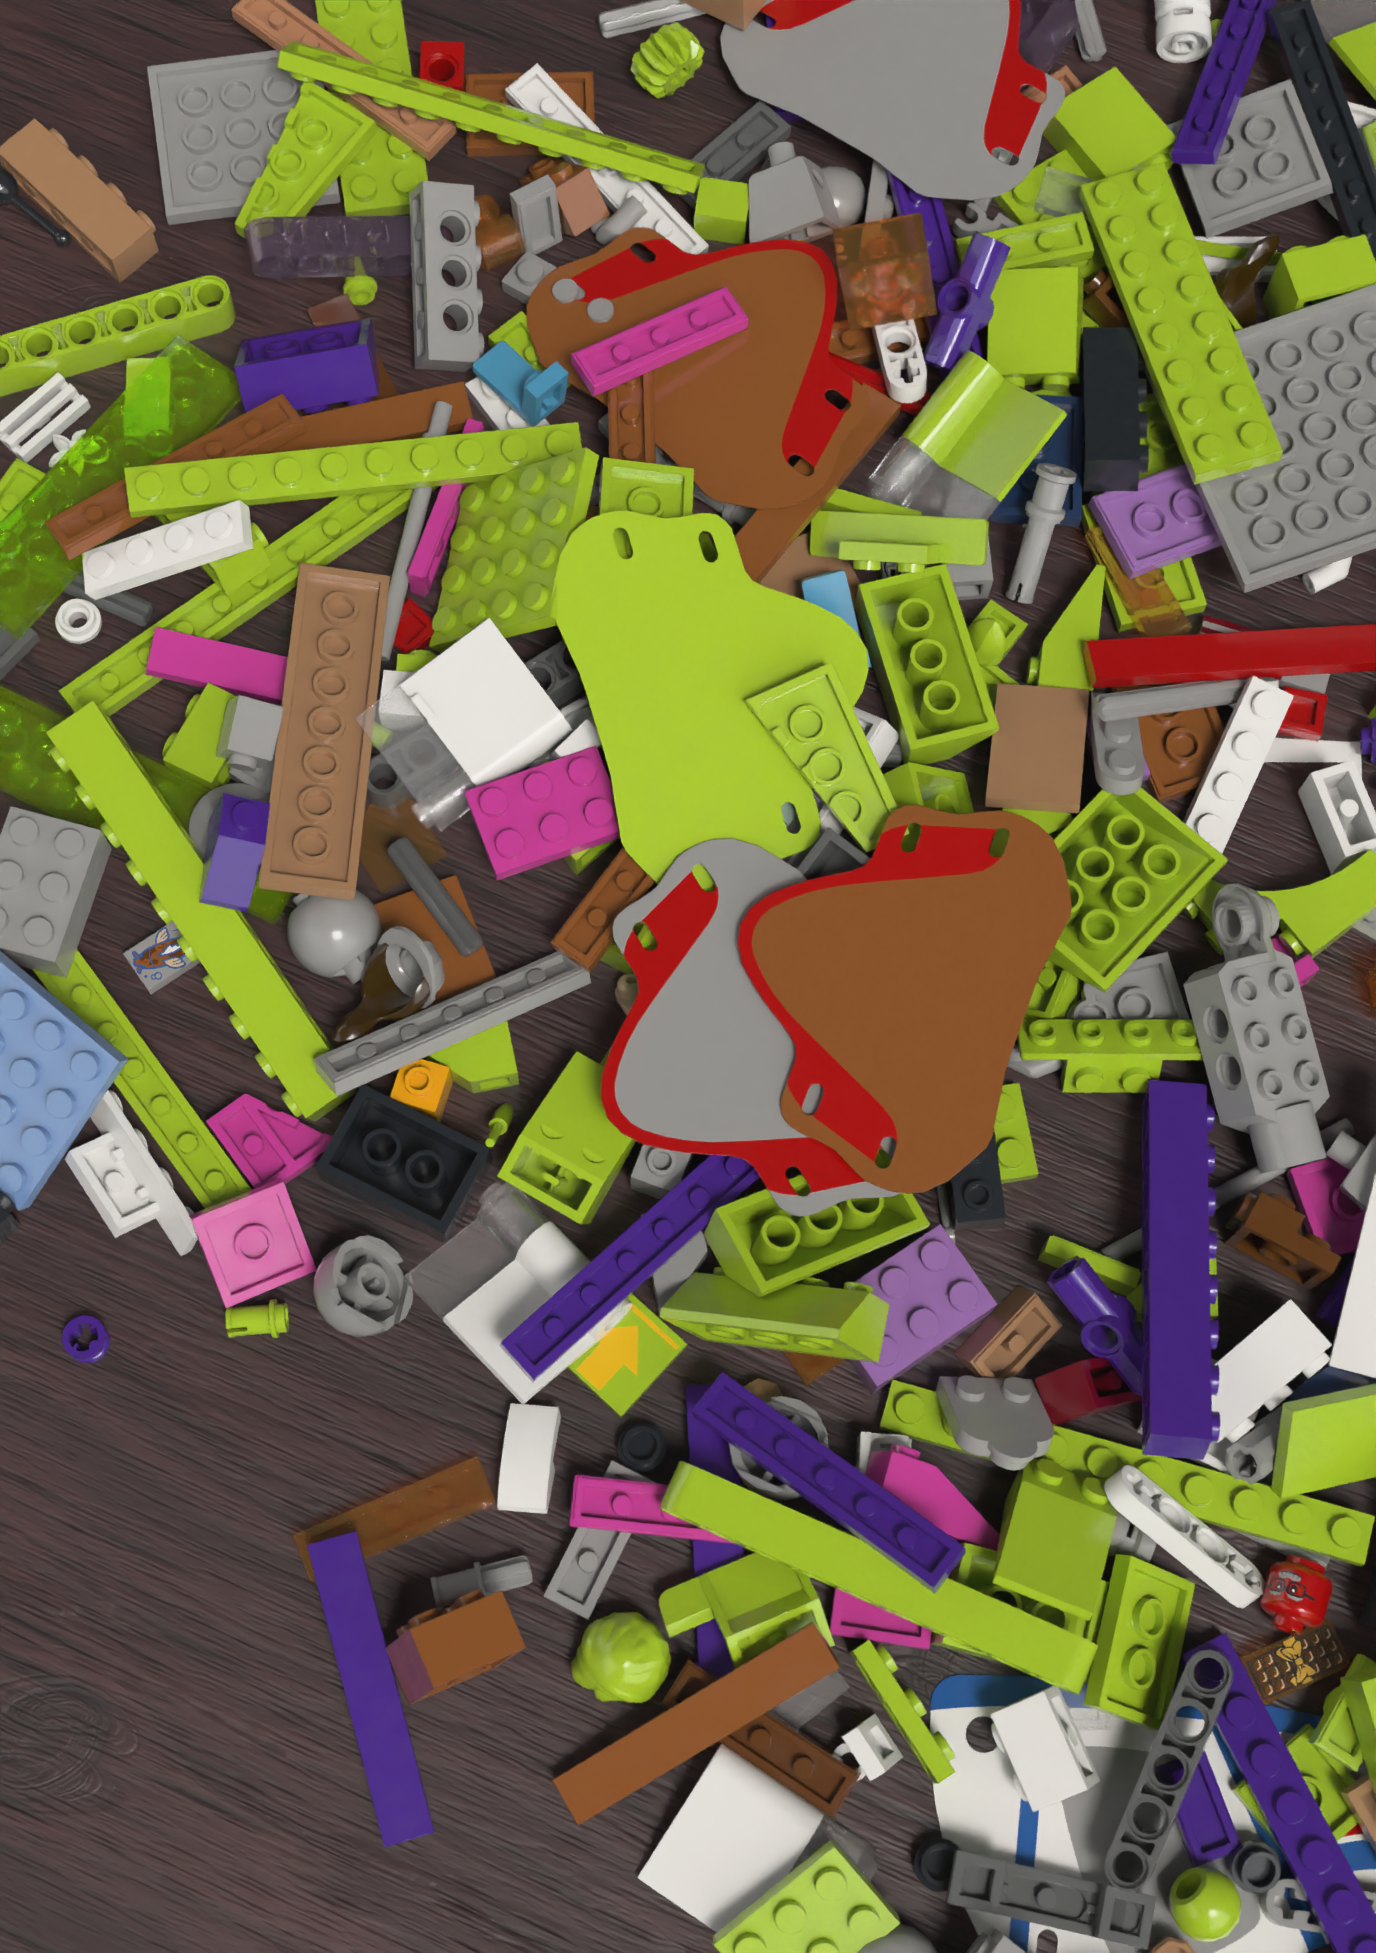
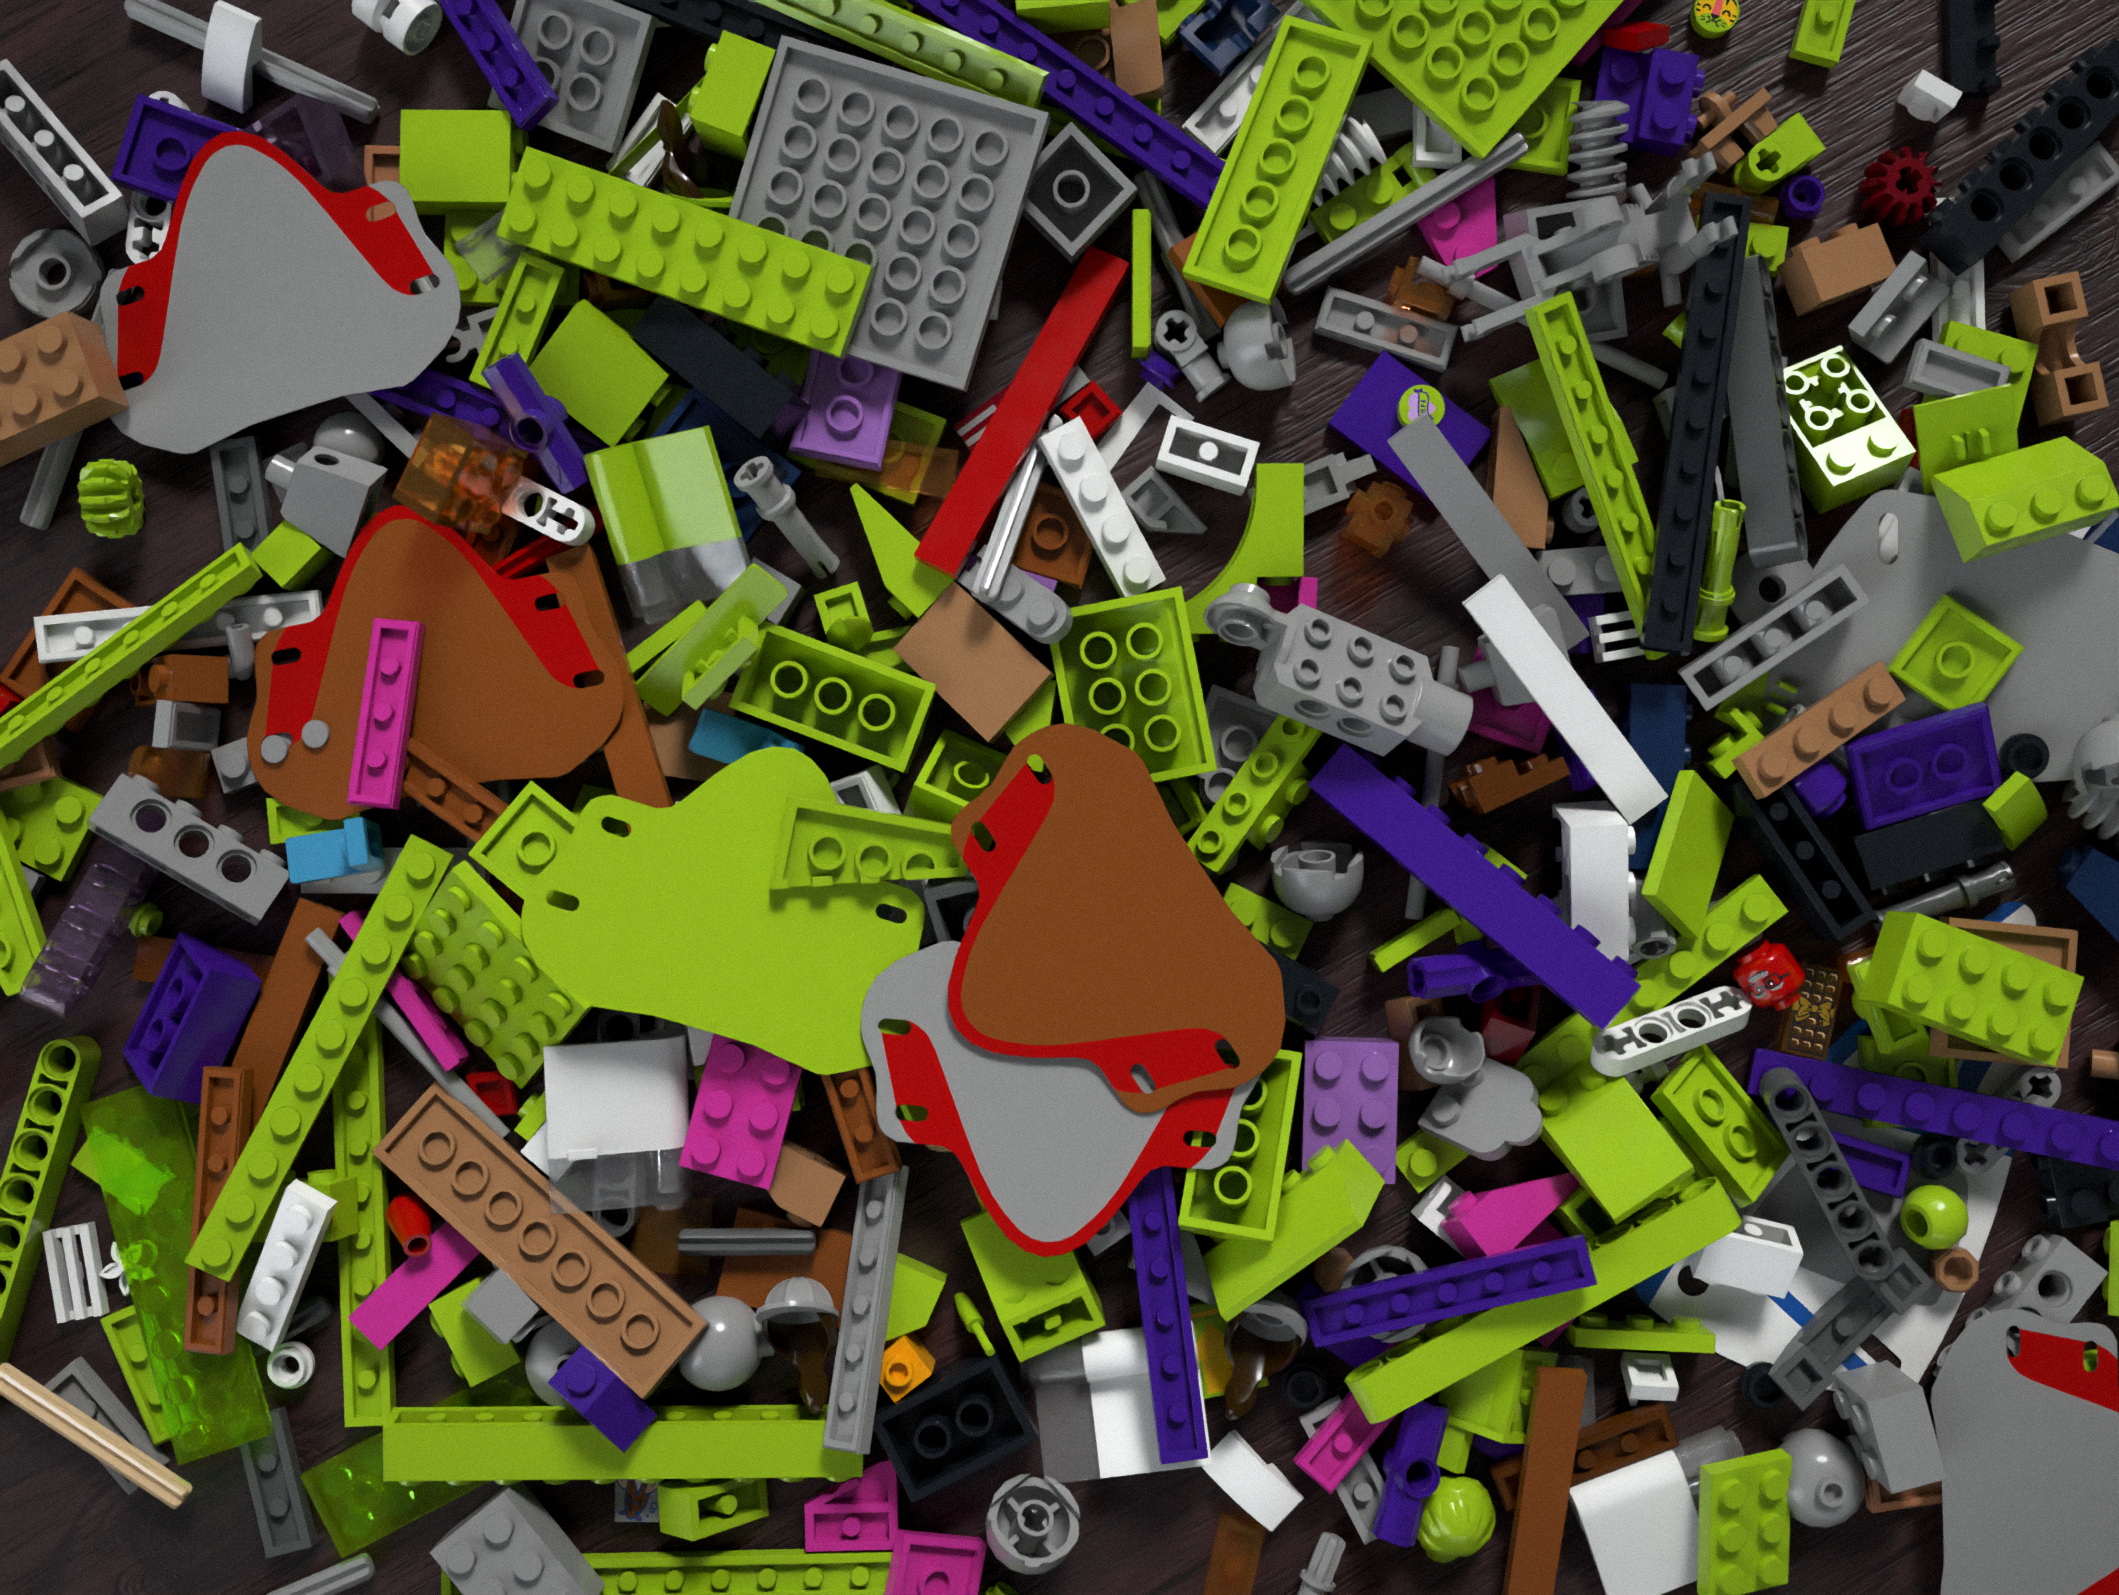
camera: 50 degrees left, 15 degrees up
(196, 1018) = (709, 1507): none -> lime slope
(265, 629) = (411, 1223): none -> red cone
(514, 914) = (806, 1184): none -> medium nougat slope
(658, 1368) = (1261, 1344): none -> dark brown piece
(673, 1572) = (1405, 1497): none -> dark purple piece
(1020, 1348) = (1445, 1050): none -> light grey hair
(1076, 1147) = (1319, 879): none -> light grey cylinder
(1270, 817) = (1159, 507): none -> light grey tile

